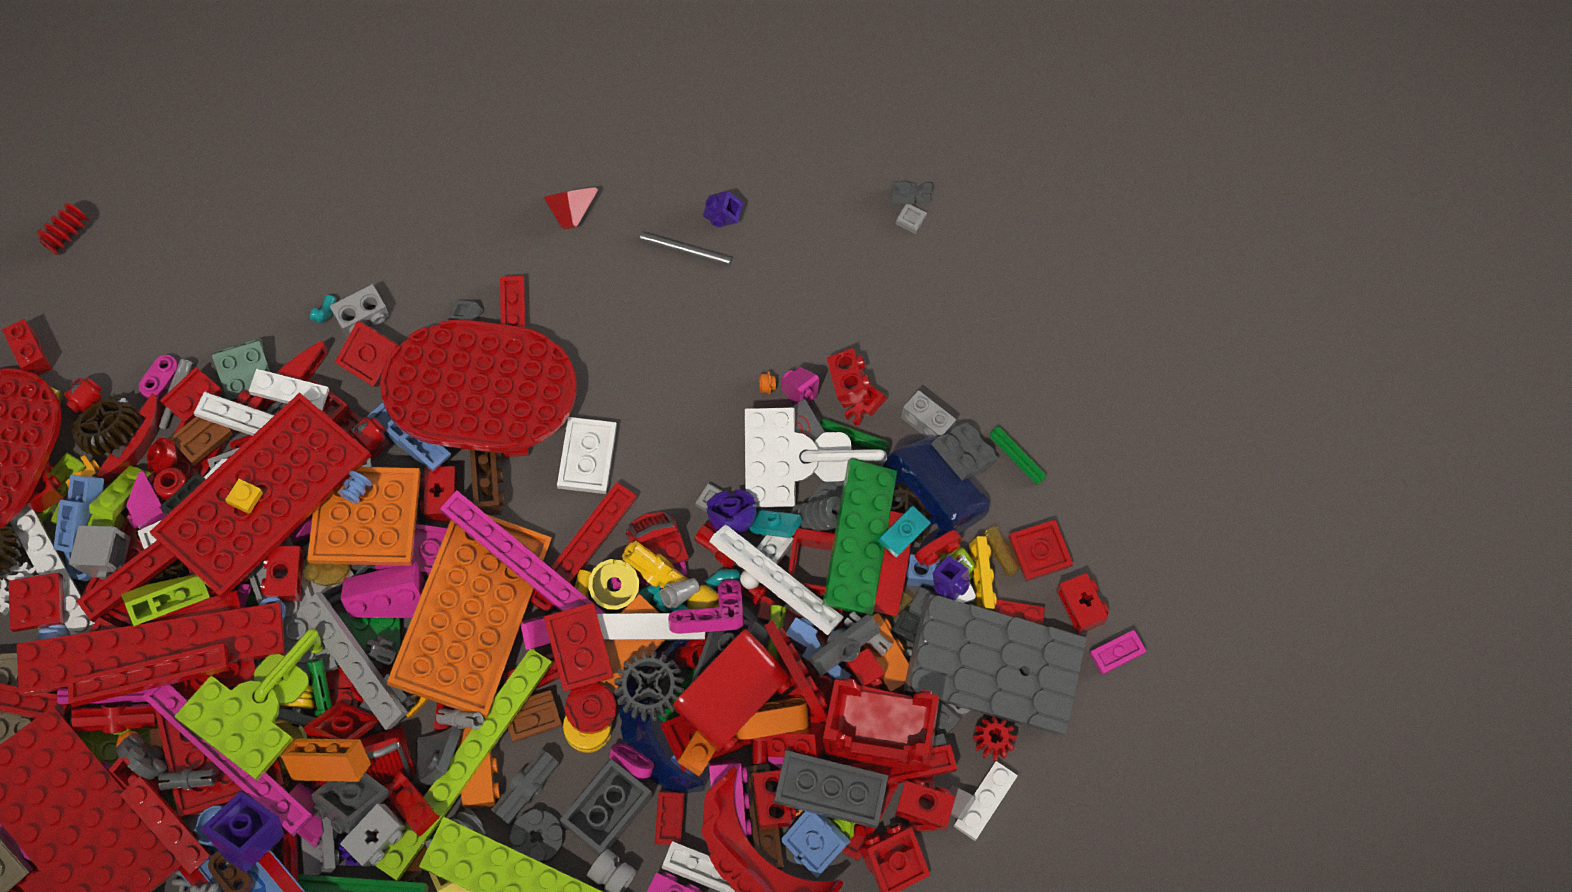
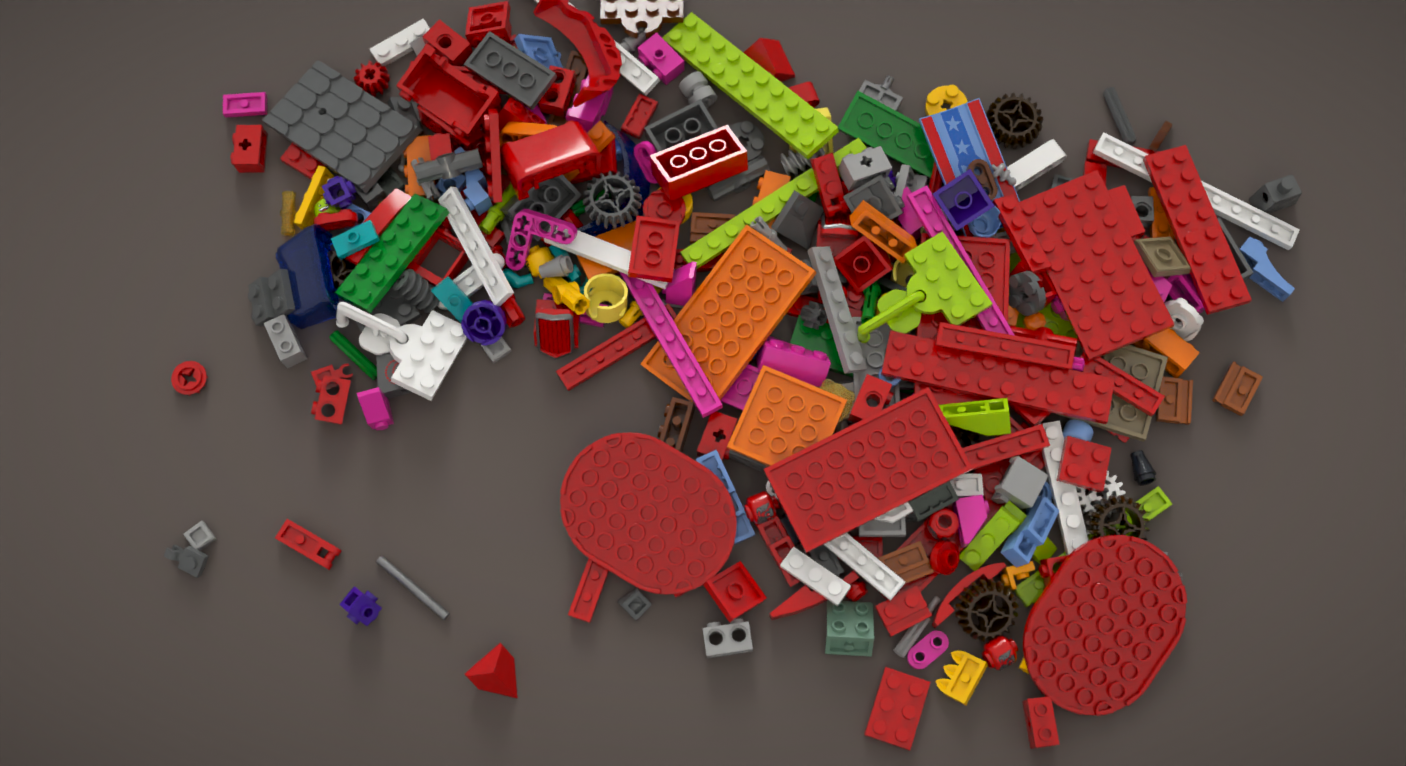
camera: 150 degrees left, 5 degrees up
(115, 361) = (963, 677): none -> yellow plate
(174, 315) = (897, 708): none -> red plate
(187, 779) = (995, 259): dark grey pin -> none
(244, 496) = (883, 466): yellow plate -> none
(325, 312) = (757, 655): teal arm -> none
(354, 487) = (787, 443): medium blue bush -> none
(568, 768) = (699, 162): none -> red brick
(587, 455) = (581, 422): white plate -> none
(767, 383) = (402, 429): orange plate -> none
(803, 246) = (307, 543): none -> red plate
(1013, 345) = (188, 368): none -> red gear
(1023, 461) = (231, 286): green axle -> none
(1040, 550) = (257, 202): red plate -> none

